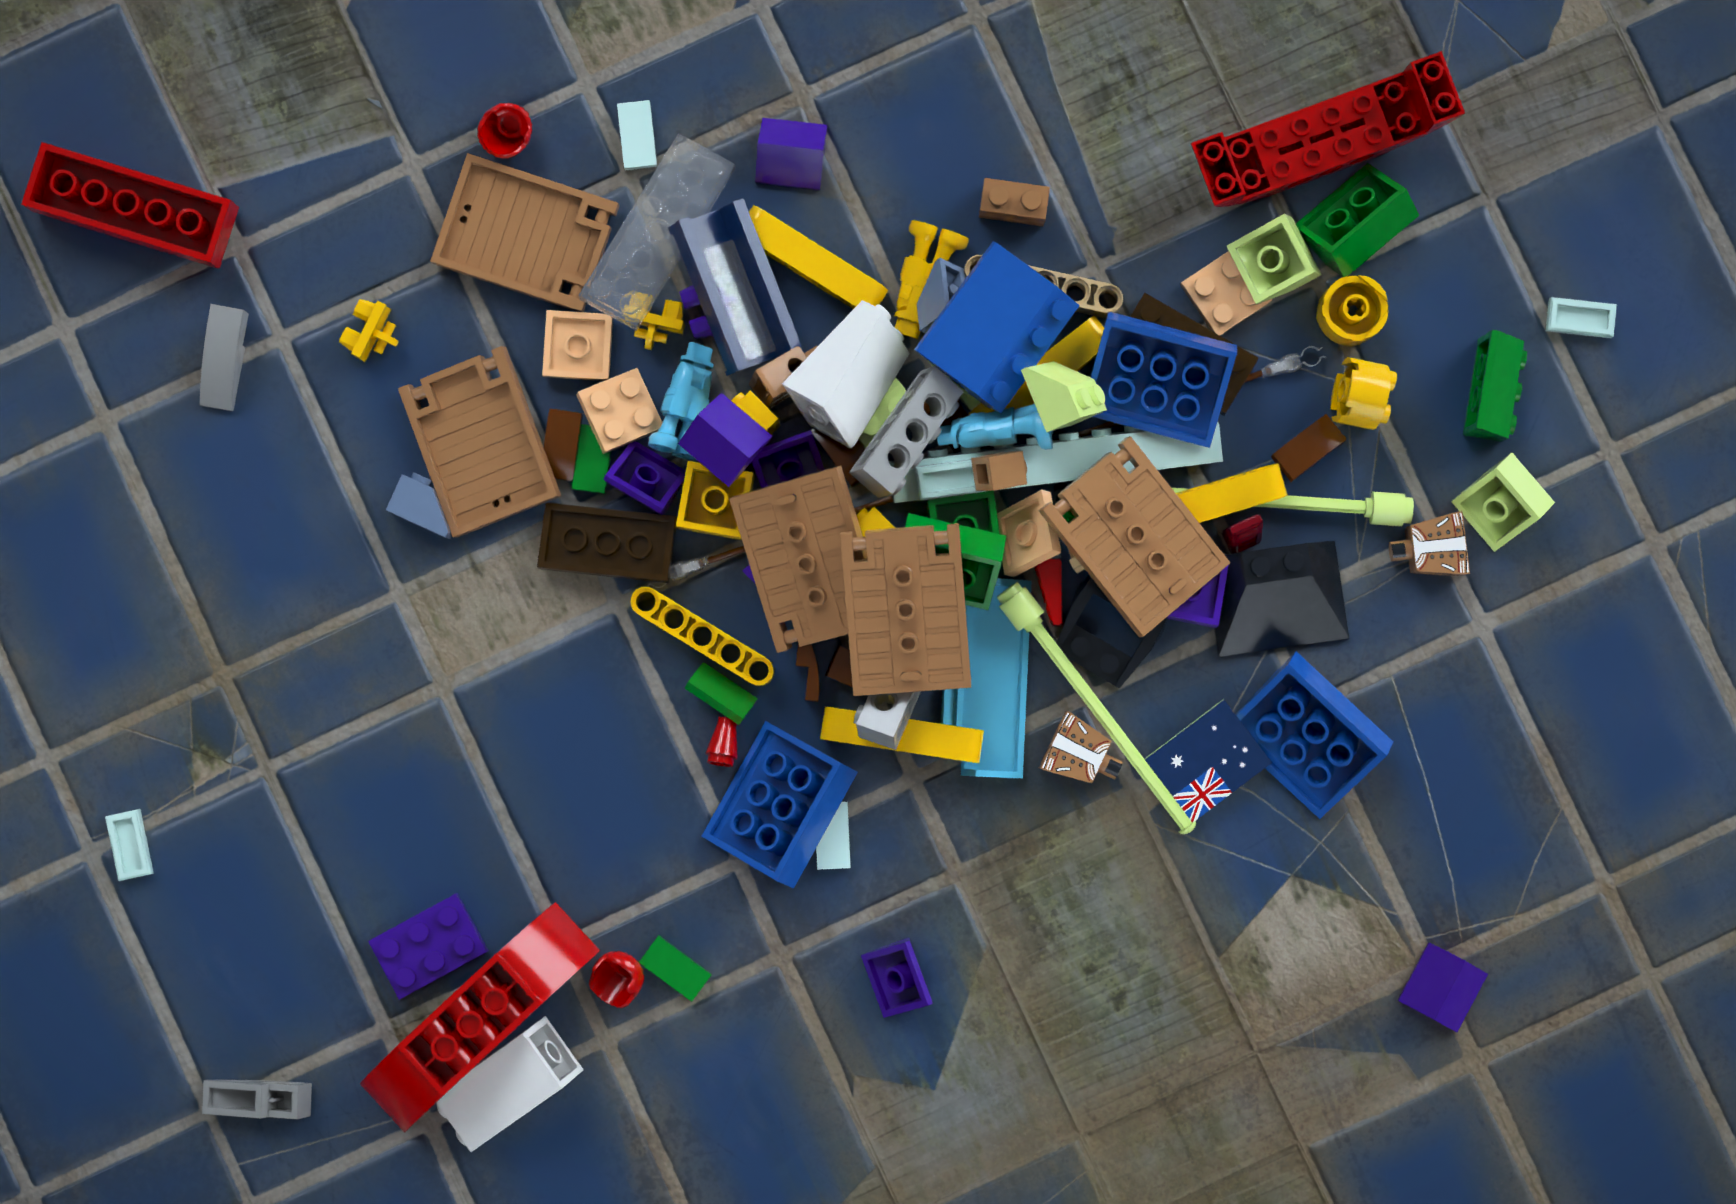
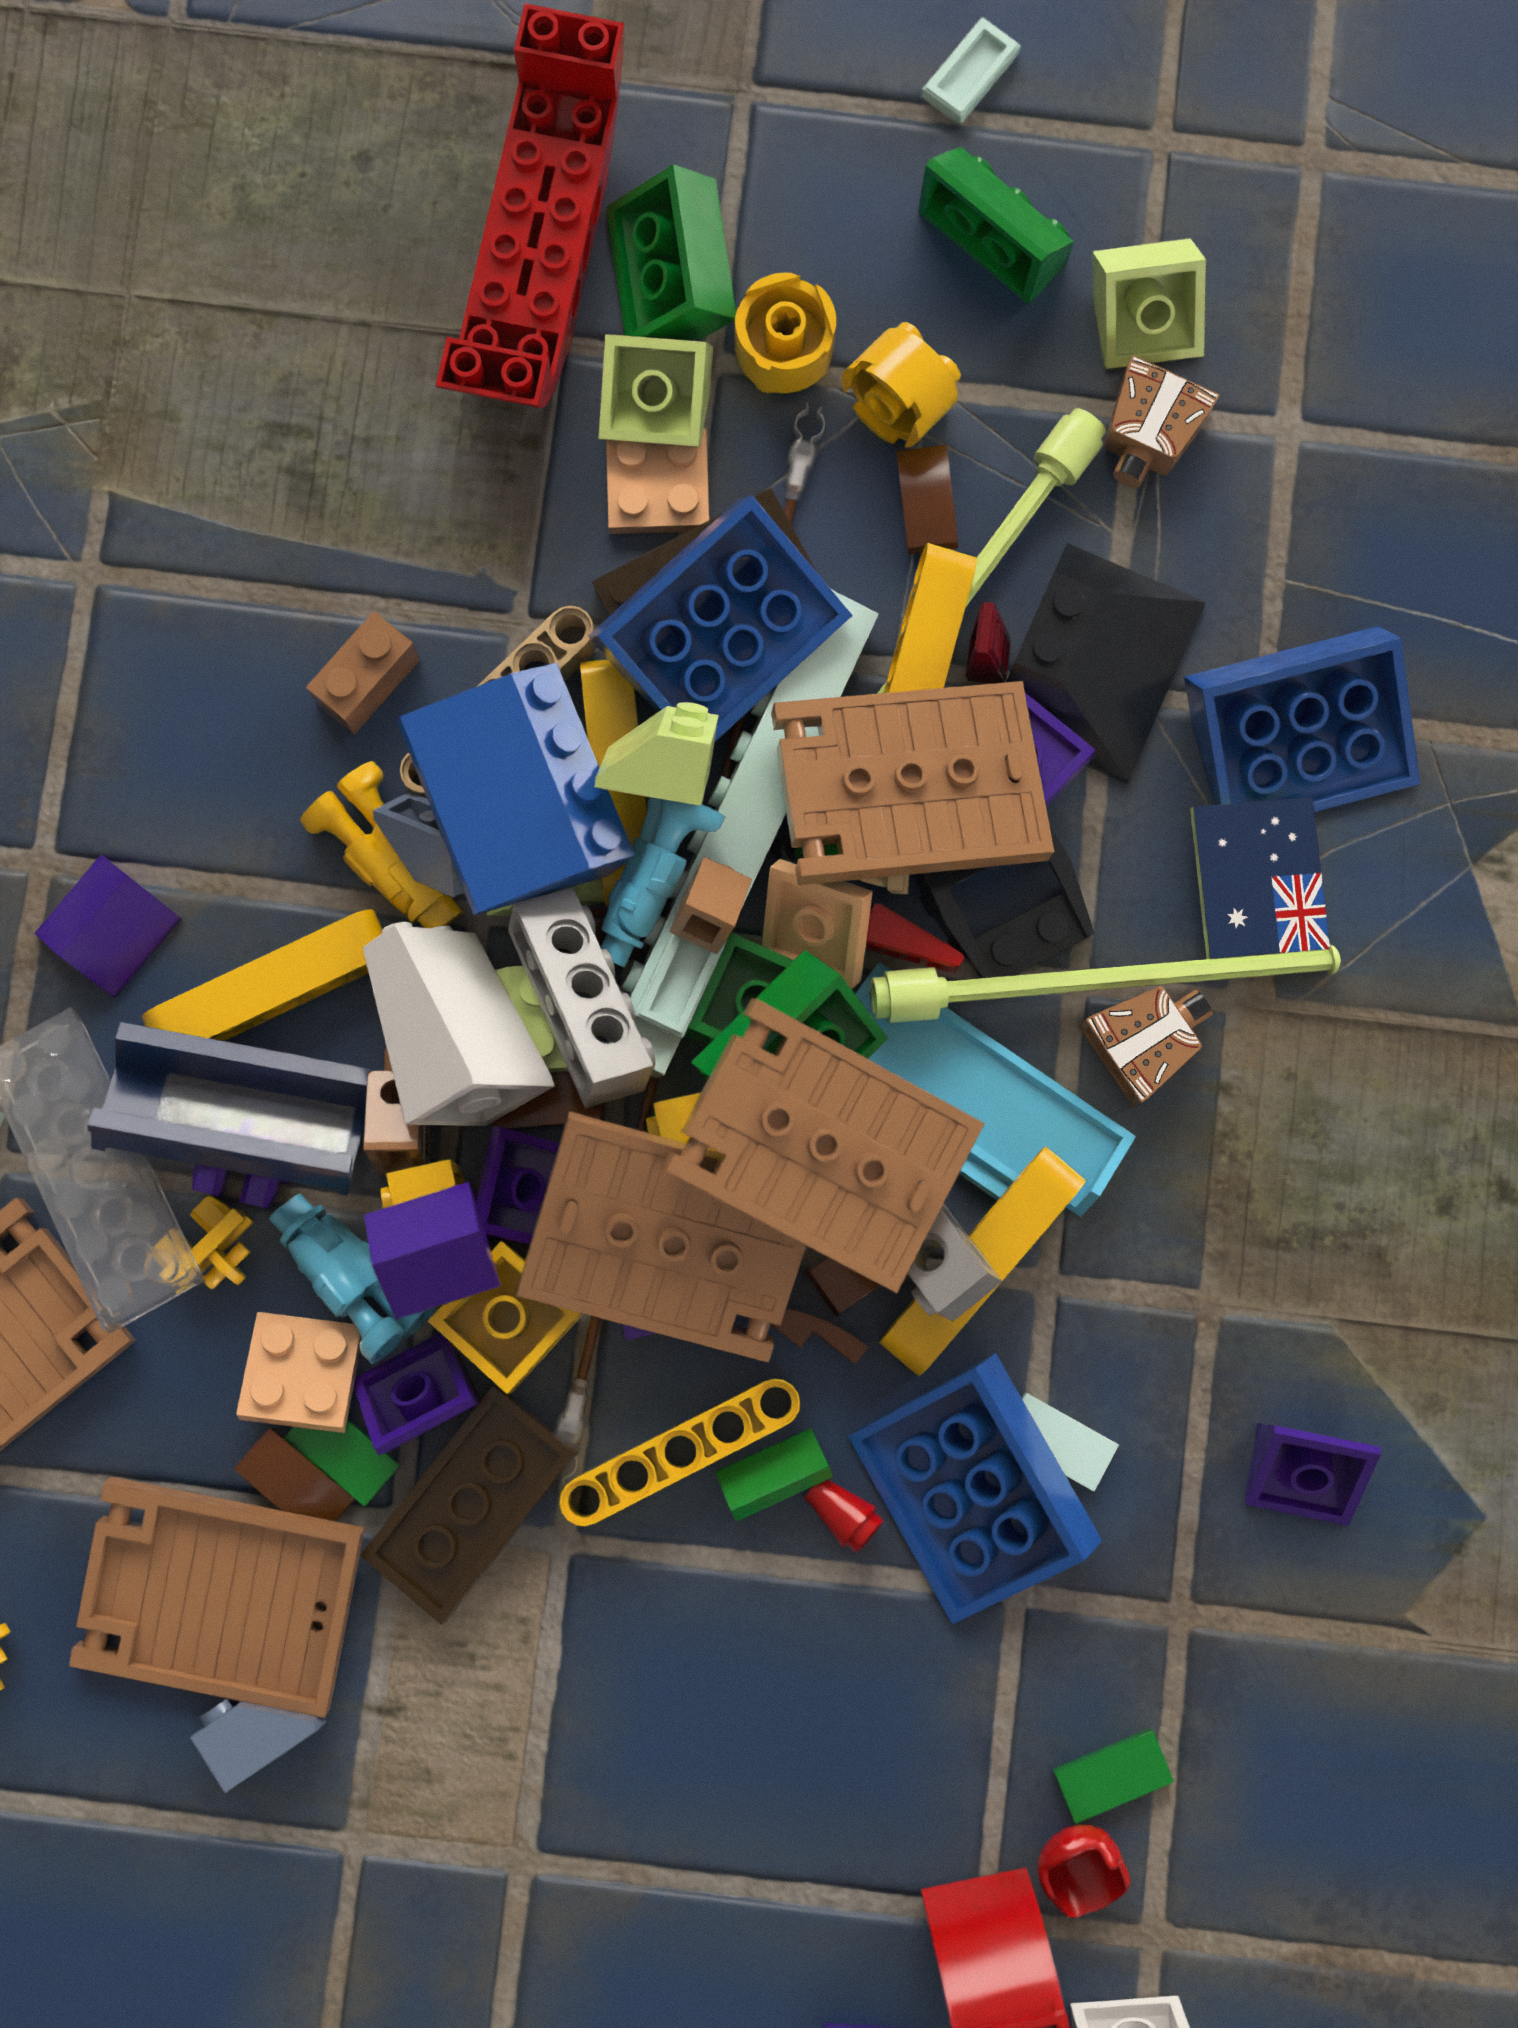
camera: 65 degrees left, 5 degrees down
(577, 345) = (174, 1375): light nougat plate -> none

